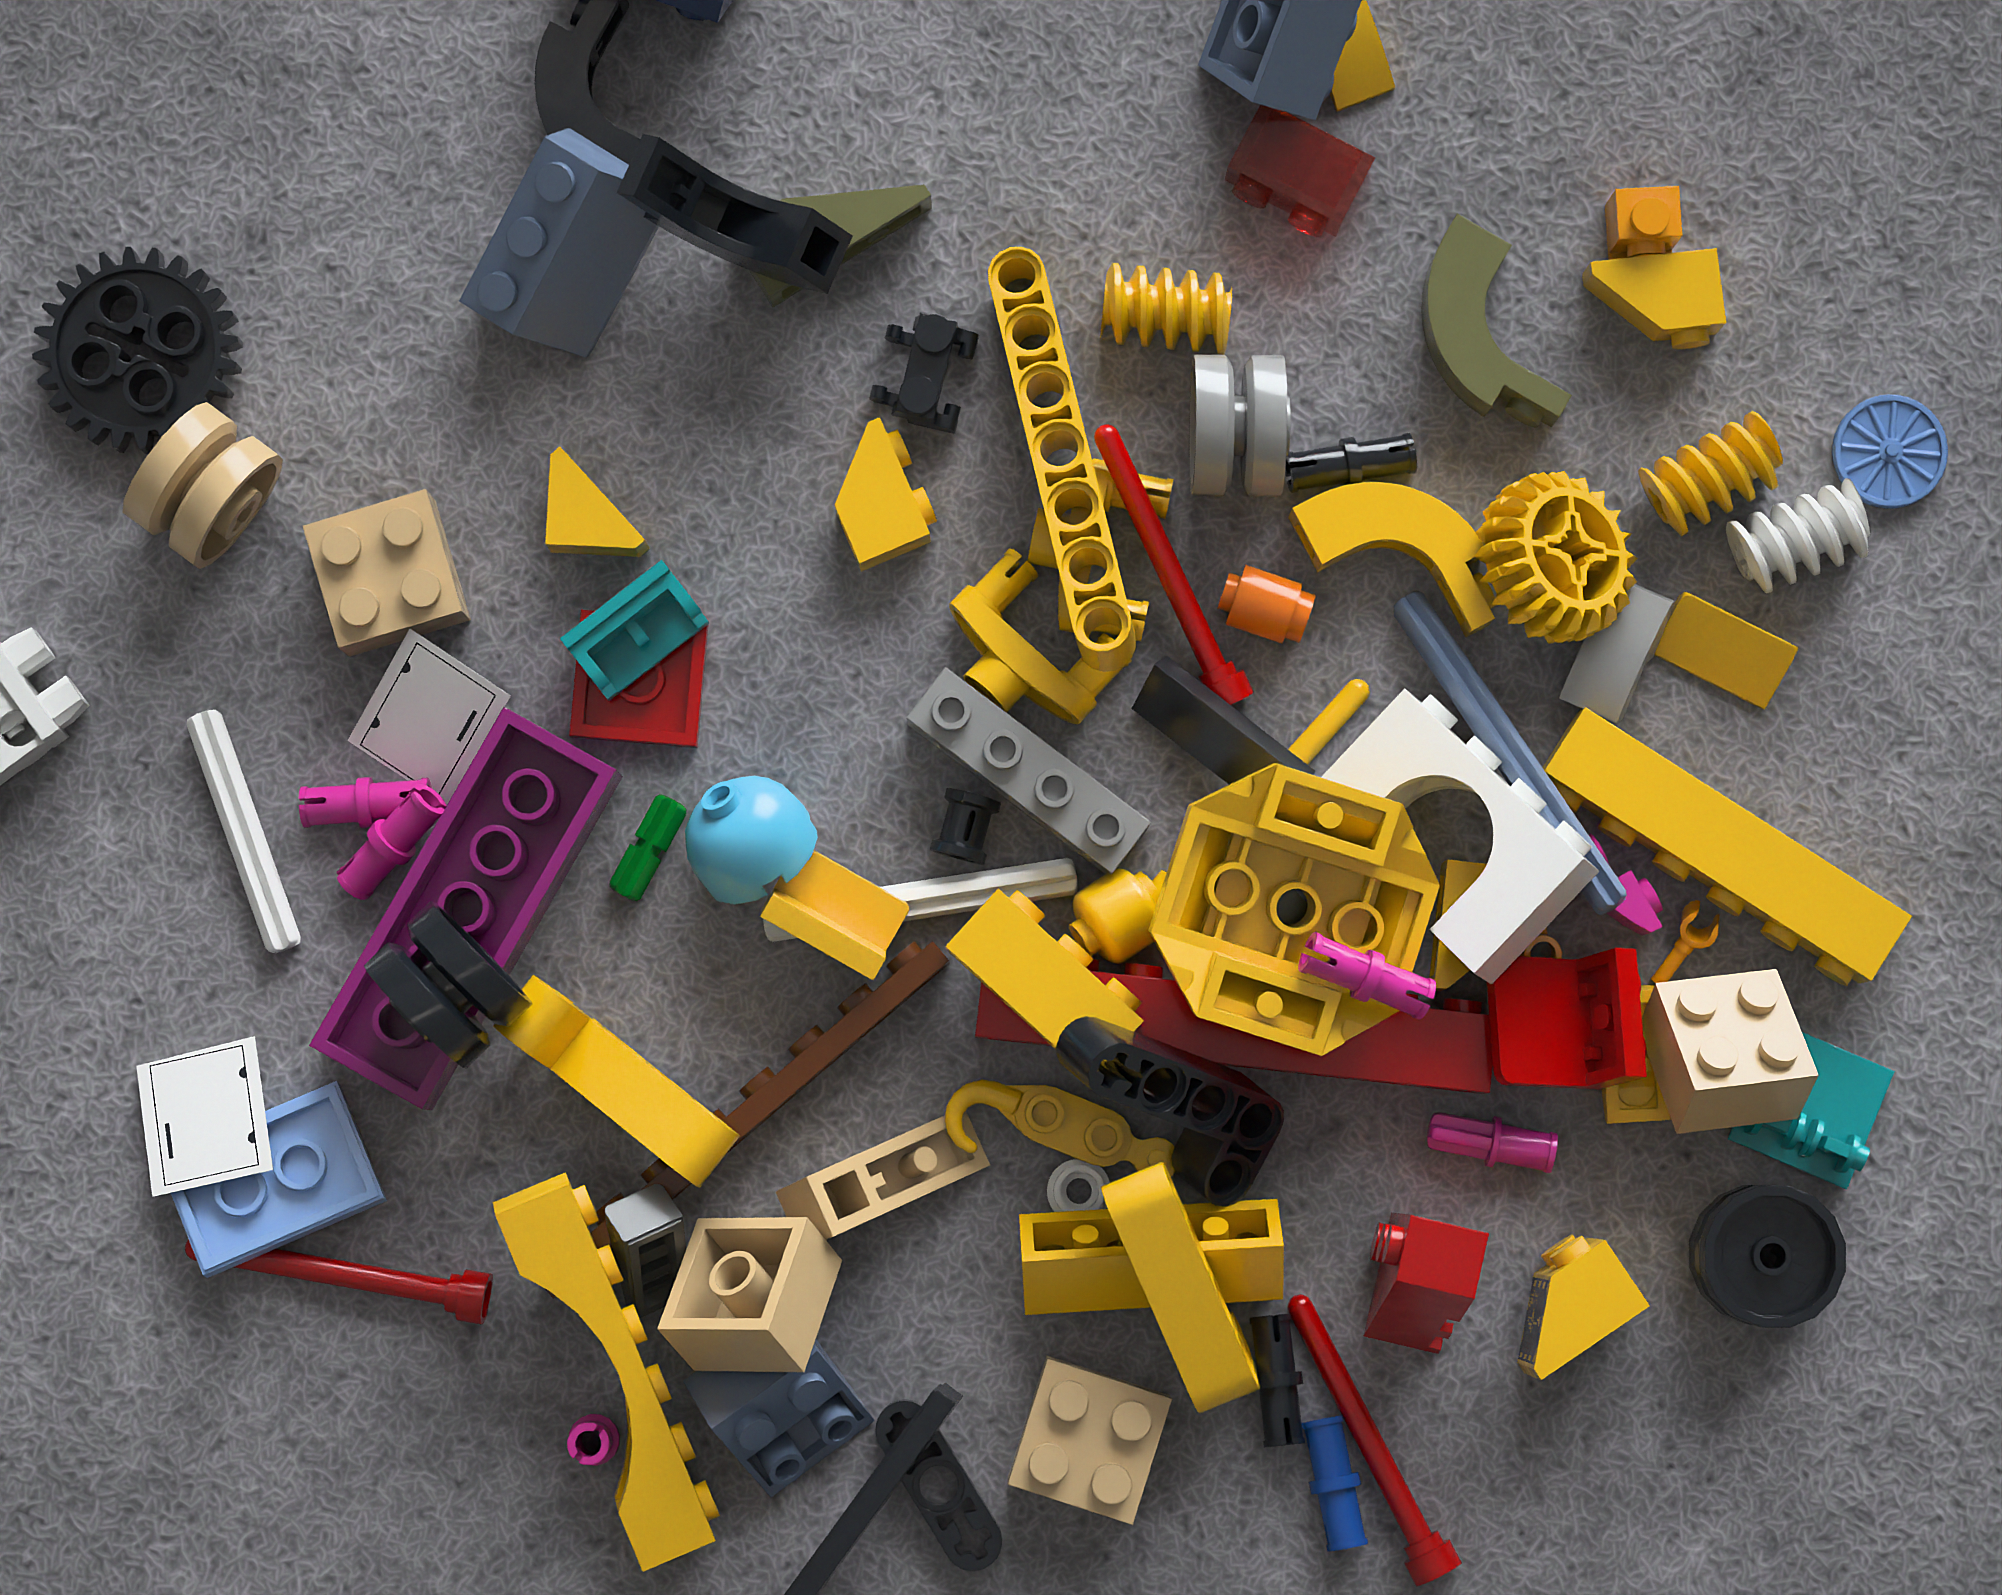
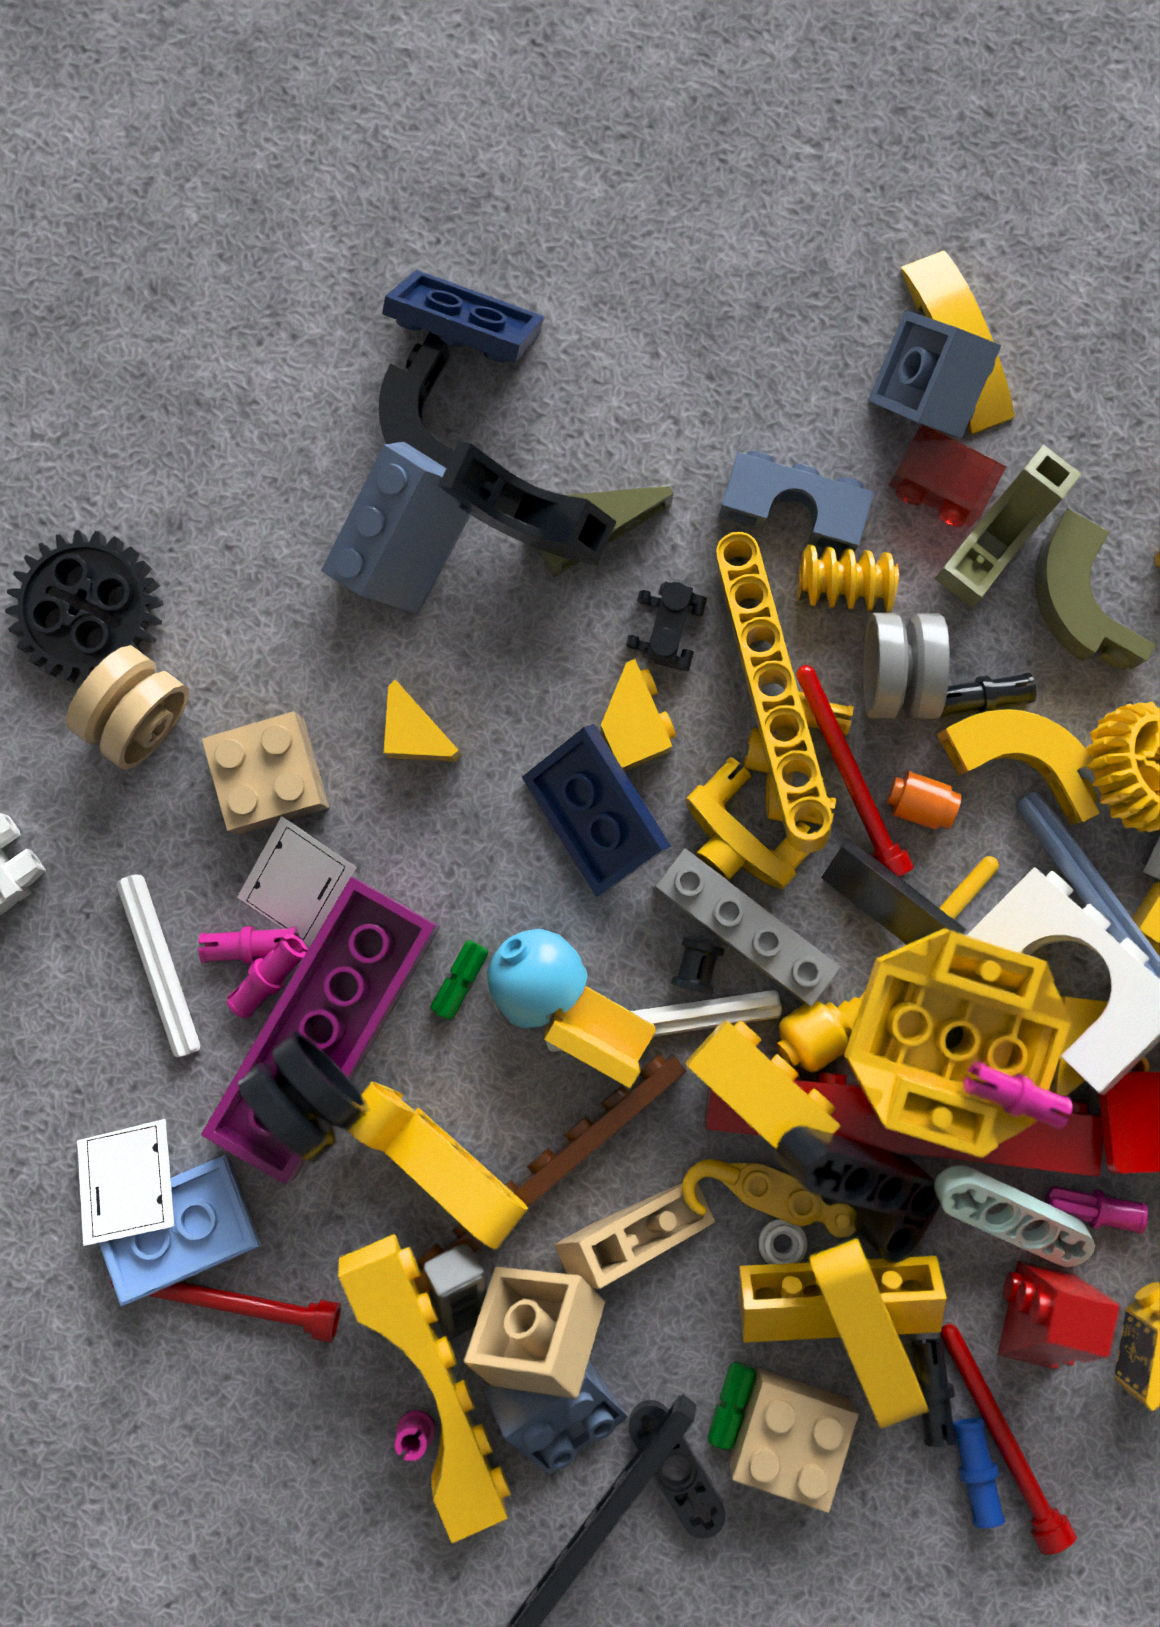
camera: 10 degrees right, 0 degrees up
(635, 630) = (450, 818): teal hinge -> none
(654, 709) = (453, 852): red tile -> none
(828, 619) = (595, 810): none -> dark blue plate
(1006, 1417) = (734, 1396): none -> green piece
(1048, 182) = (835, 506): none -> sand blue arch
(1374, 1150) = (1021, 1210): none -> light aqua beam
(1375, 239) = (1007, 526): none -> olive arch

